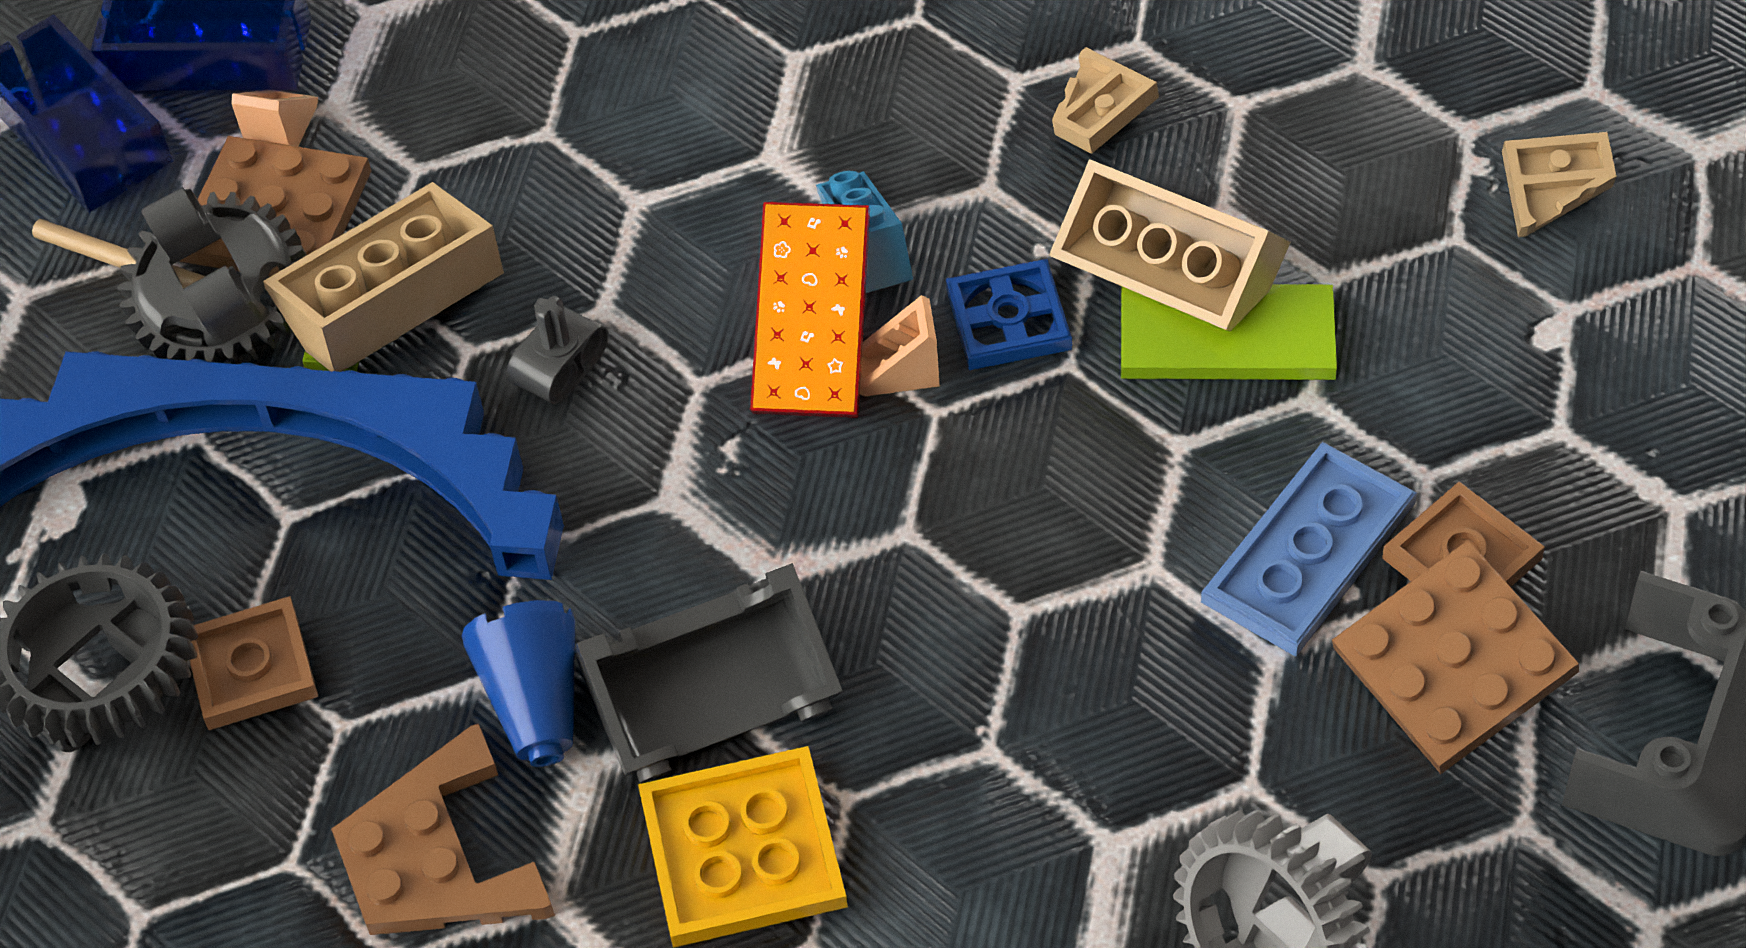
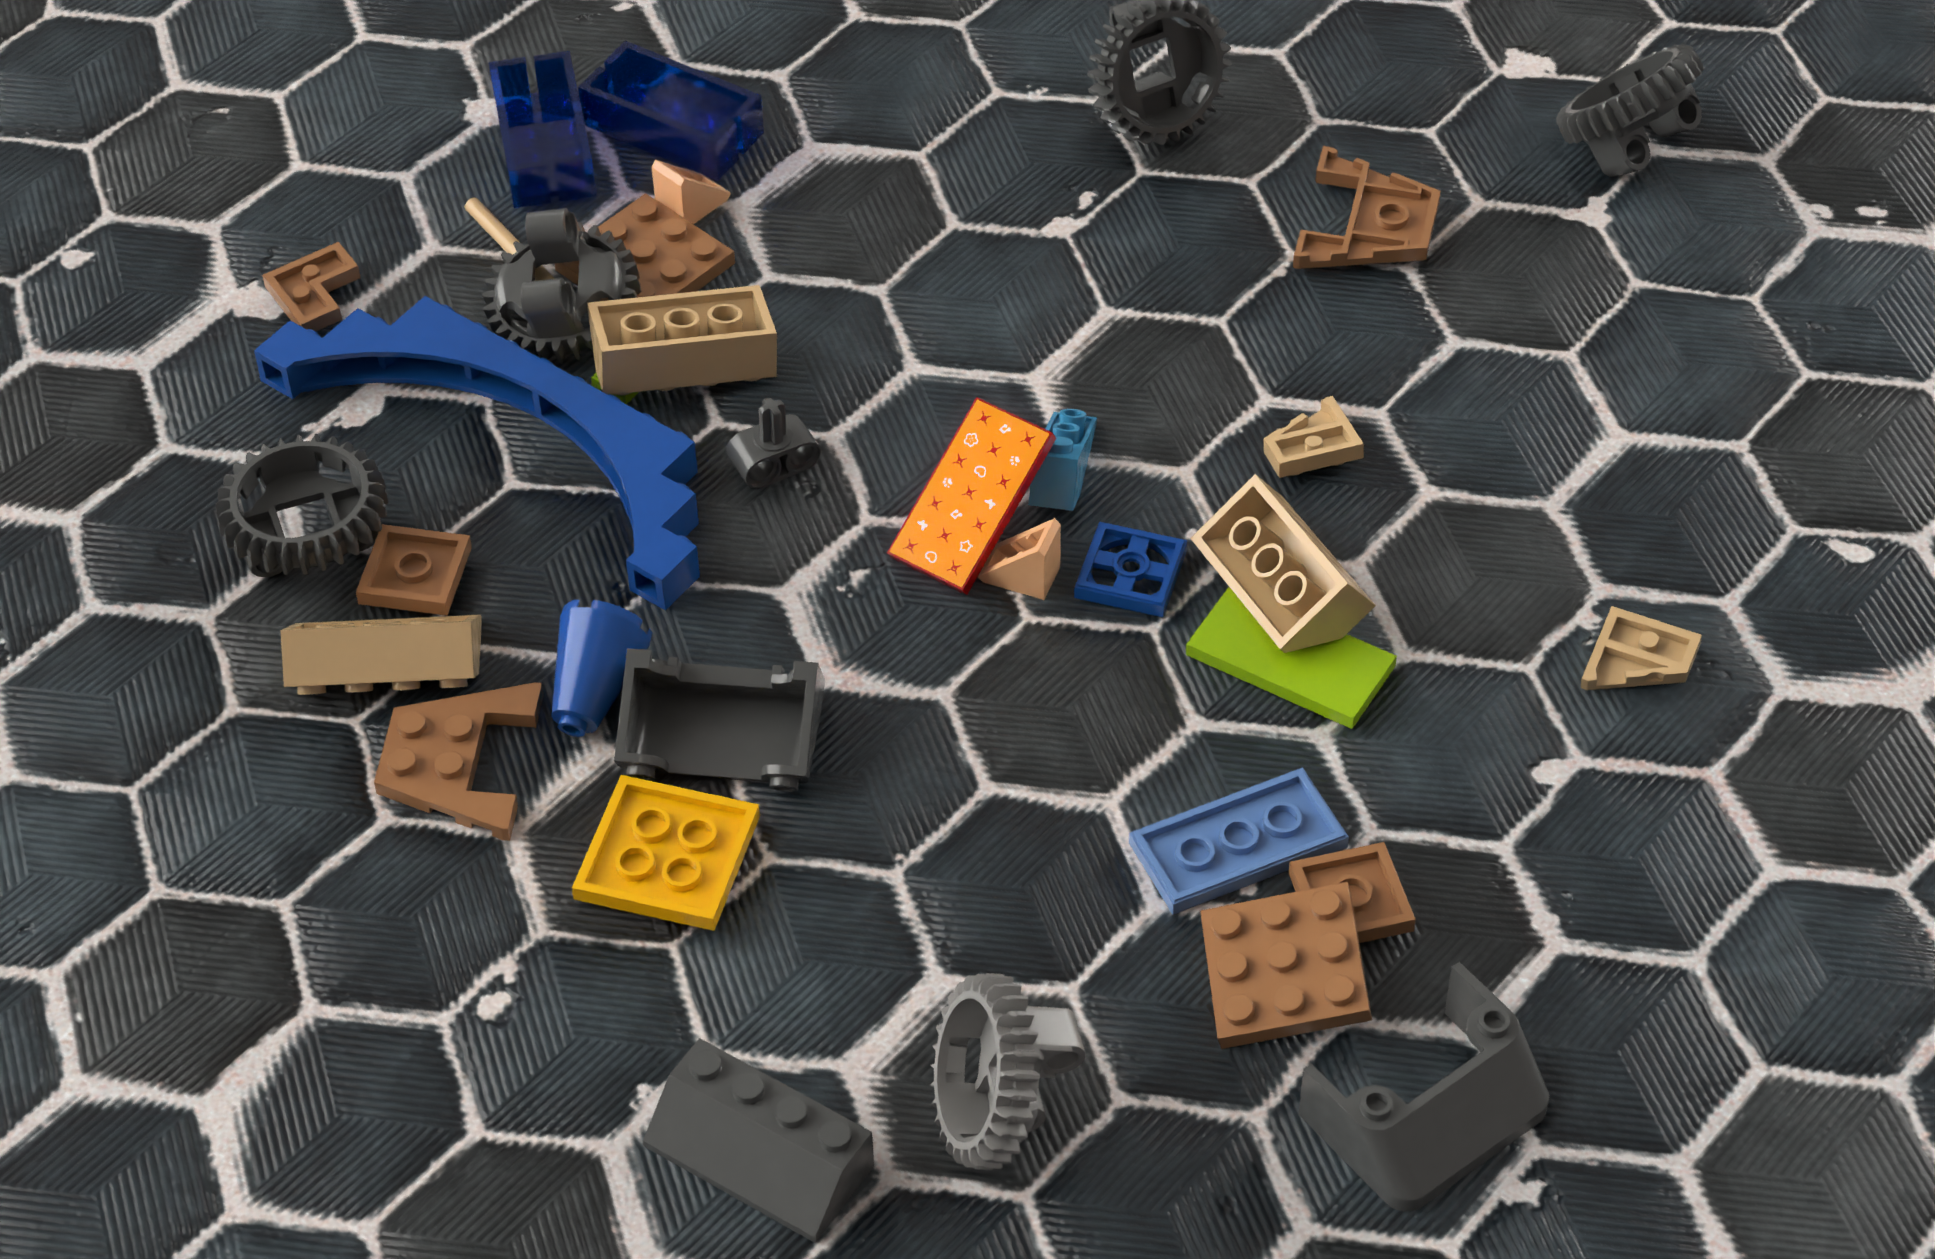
camera: 25 degrees right, 5 degrees down
(278, 771) = (380, 652): none -> tan slope

